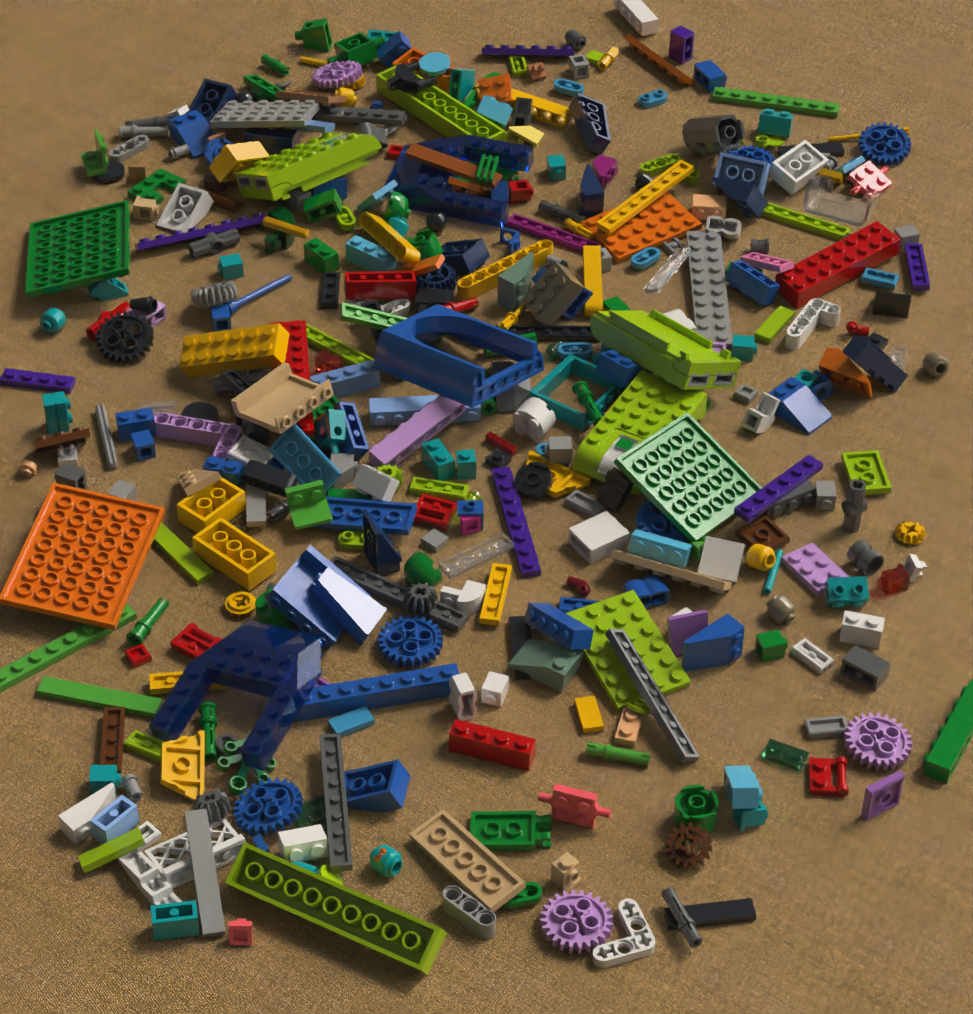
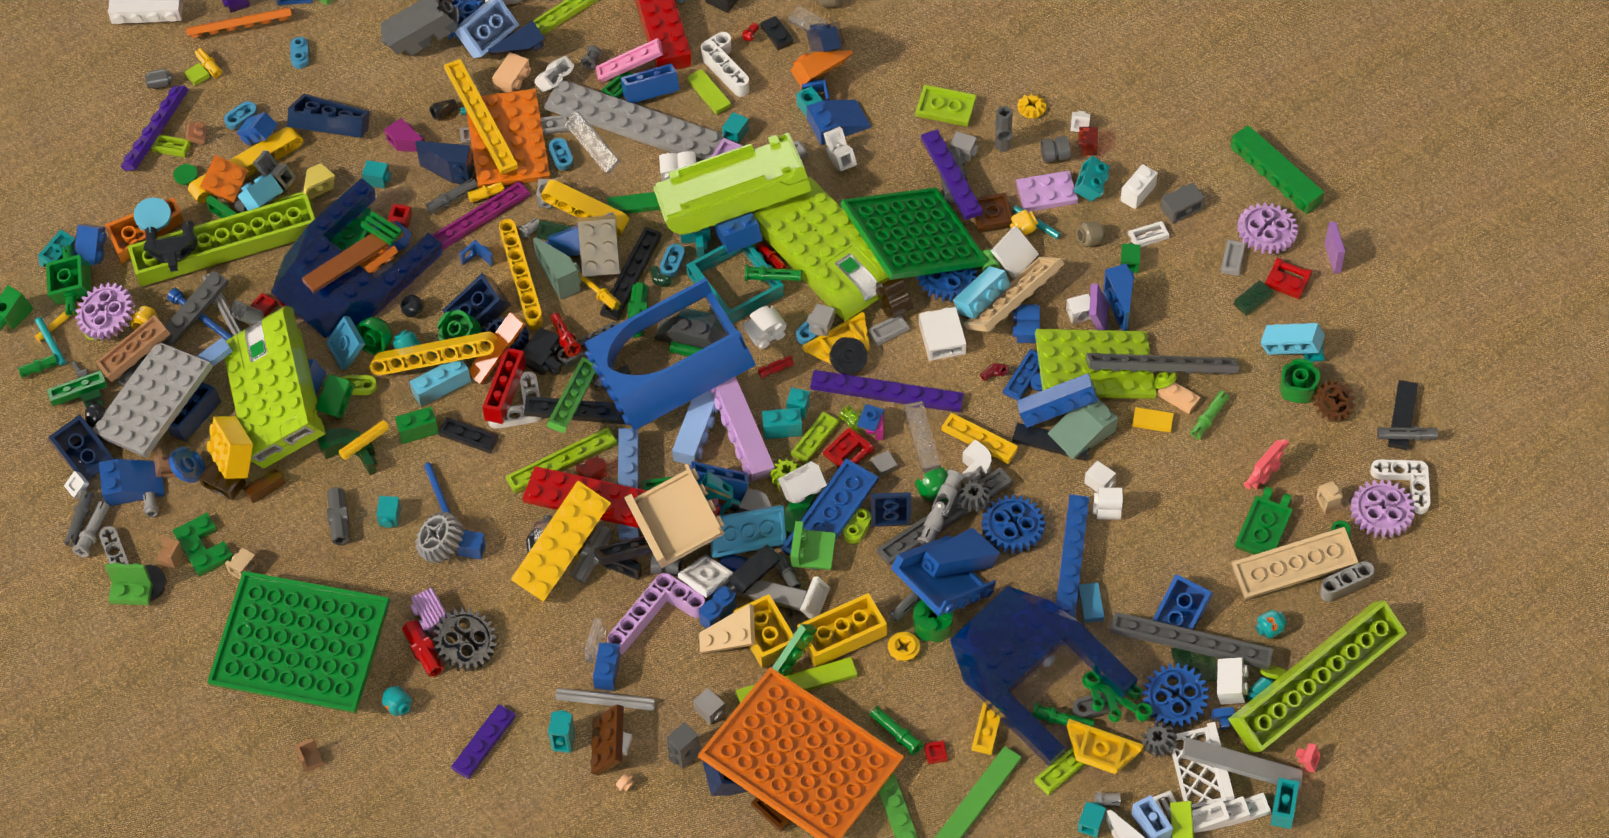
camera: 65 degrees left, 15 degrees up
(113, 737) = (1042, 800): reddish brown plate -> none
(143, 445) = (639, 668): blue brick -> none
(145, 304) = (432, 604): black cone -> none
(185, 208) = (267, 527): white slope -> none
(191, 645) = (944, 702): red plate -> none
(192, 233) = (314, 518): dark purple plate -> none
(193, 522) = (794, 649): none -> green plate
(201, 410) = (611, 606): black tile -> none
(264, 530) = (815, 598): none -> white tile
(300, 63) = (50, 340): none -> teal piece
(395, 575) = (936, 517): none -> light grey piece
(461, 83) = (190, 204): teal slope -> none
(492, 744) = (1167, 502): red brick -> none
(498, 459) = (796, 376): black plate -> none
(554, 92) = (256, 128): none -> blue brick
(579, 66) = (210, 92): light grey brick -> none
(652, 167) = (423, 76): lime beam -> none

